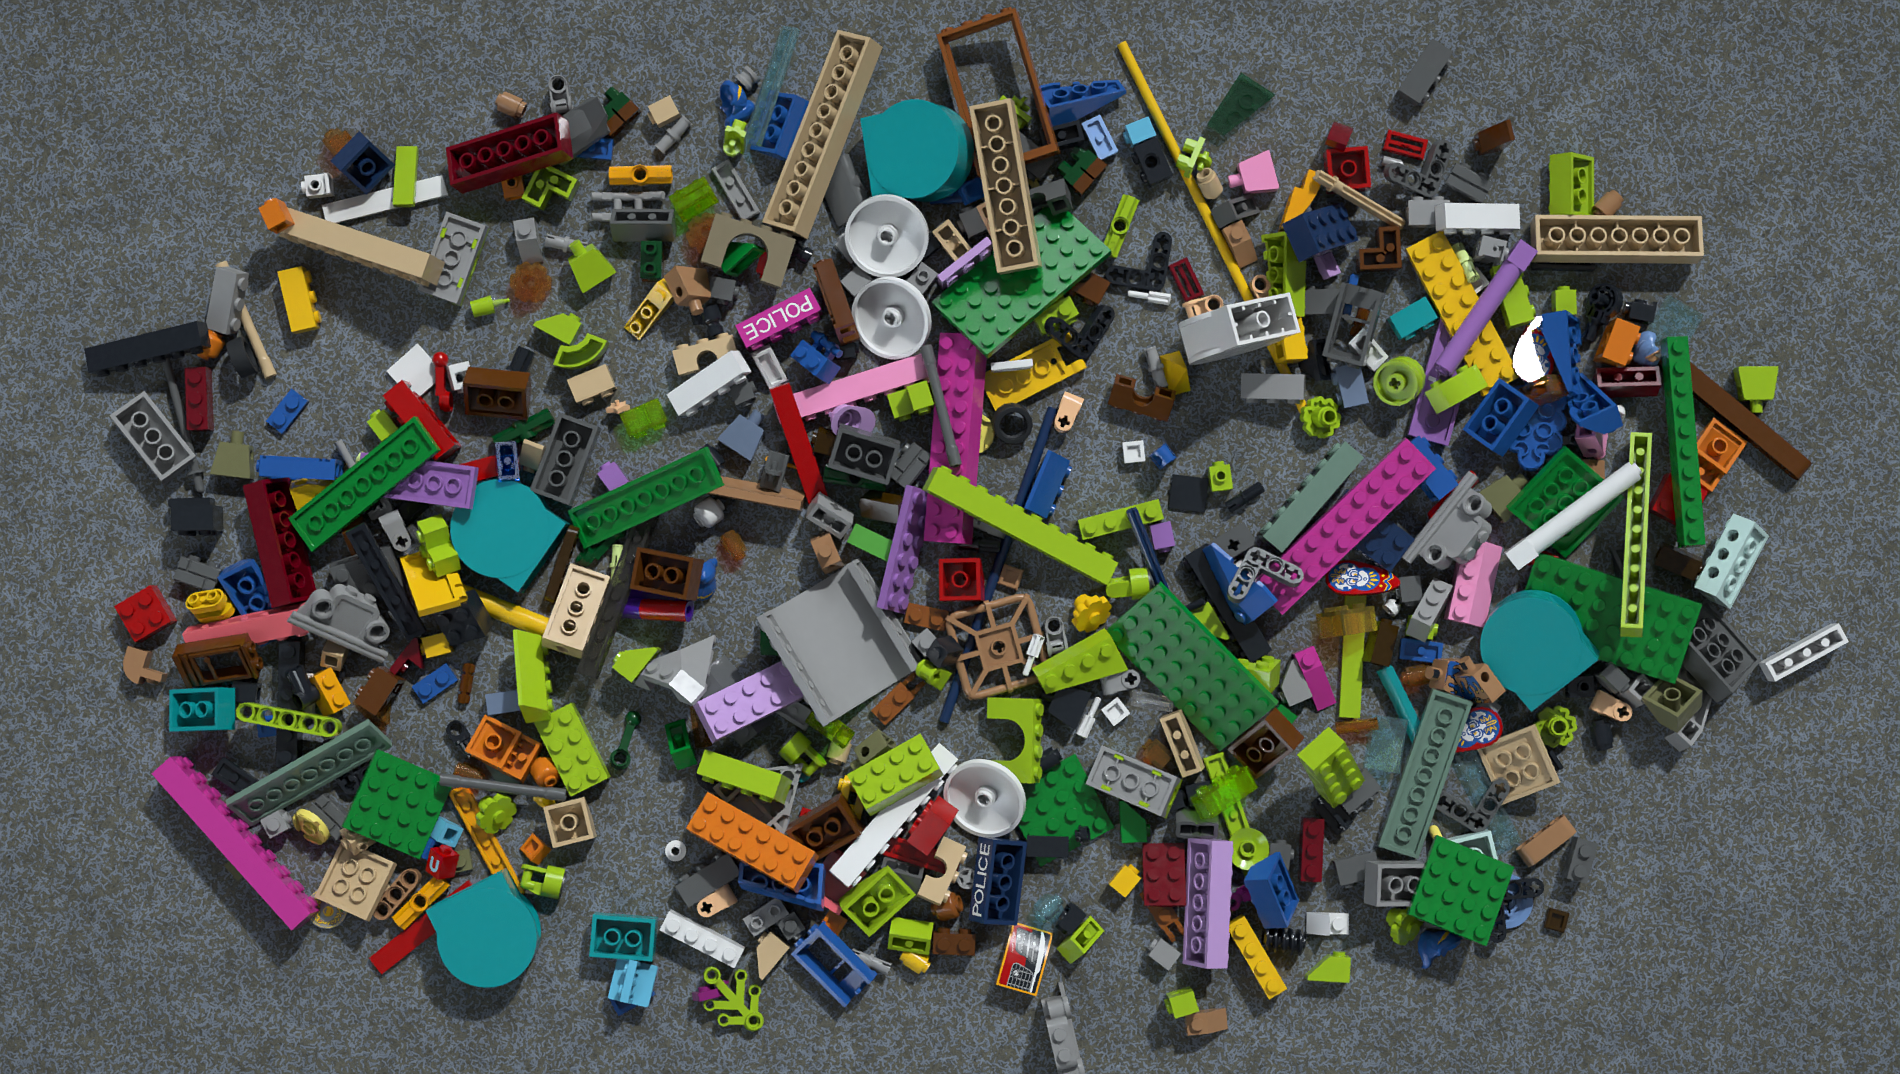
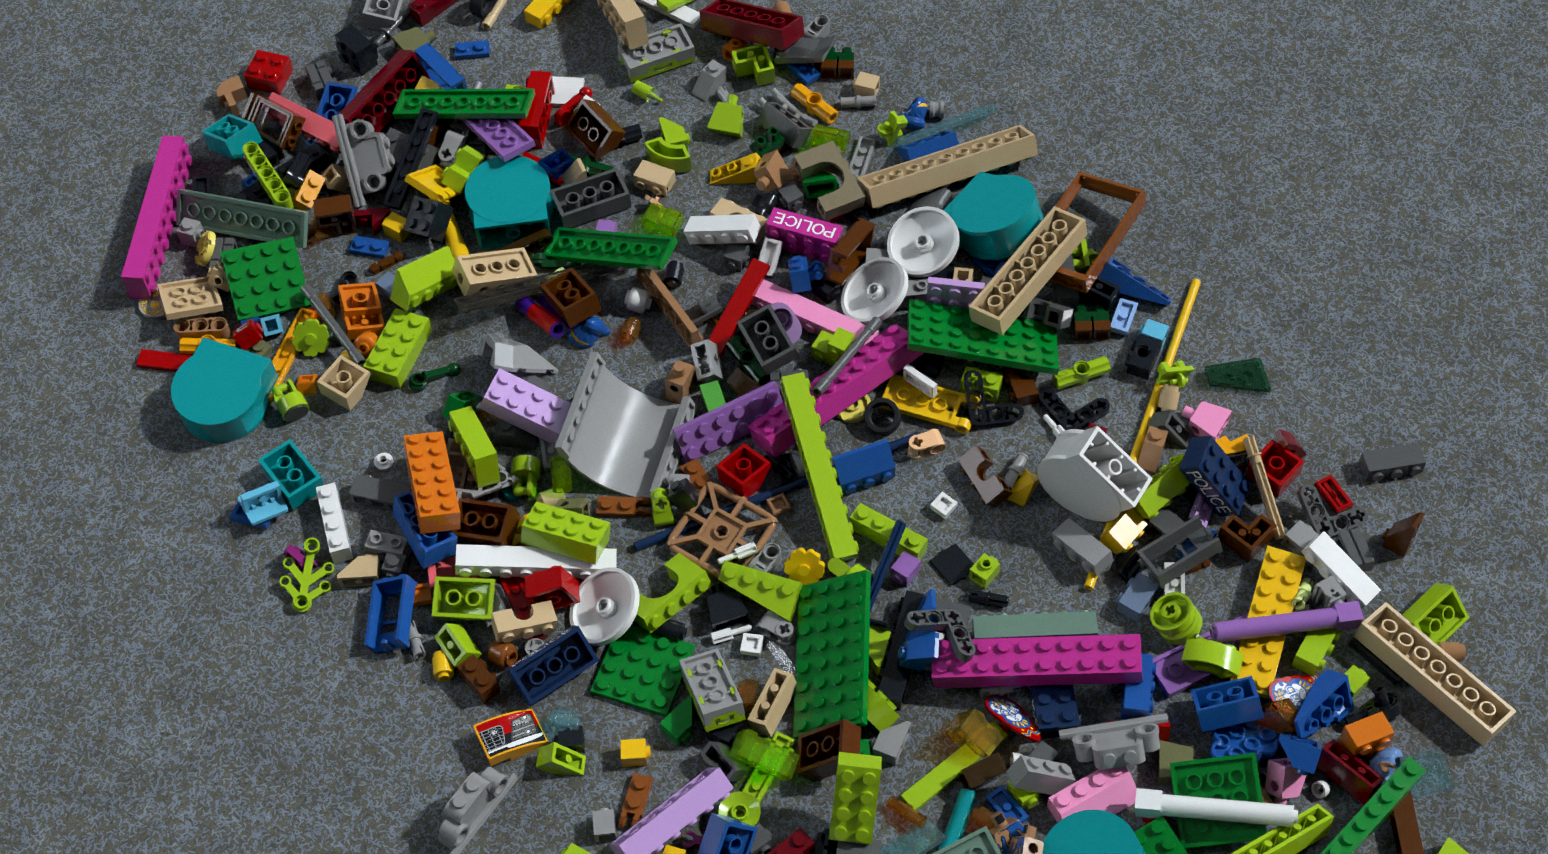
camera: 50 degrees right, 30 degrees down
(210, 606) = (306, 94): yellow brick -> none
(531, 282) = (685, 102): clear orange plant -> none
(633, 662) = (492, 323): lime slope -> none
(720, 900) = (369, 510): light nougat piece -> none
(744, 435) = (709, 279): sand blue torso -> none
(1047, 846) = (609, 678): black tile -> none
(1082, 834) = (640, 692): black plate -> none
(1162, 456) = (960, 521): blue leg -> none
(1163, 875) = (663, 775): dark red plate -> none
(1315, 677) = (911, 751): dark pink slope -> none
(1320, 417) = (1096, 596): lime plant -> none
(1412, 318) = (1227, 596): teal brick -> none
(1640, 311) = (1407, 739): black brick -> none

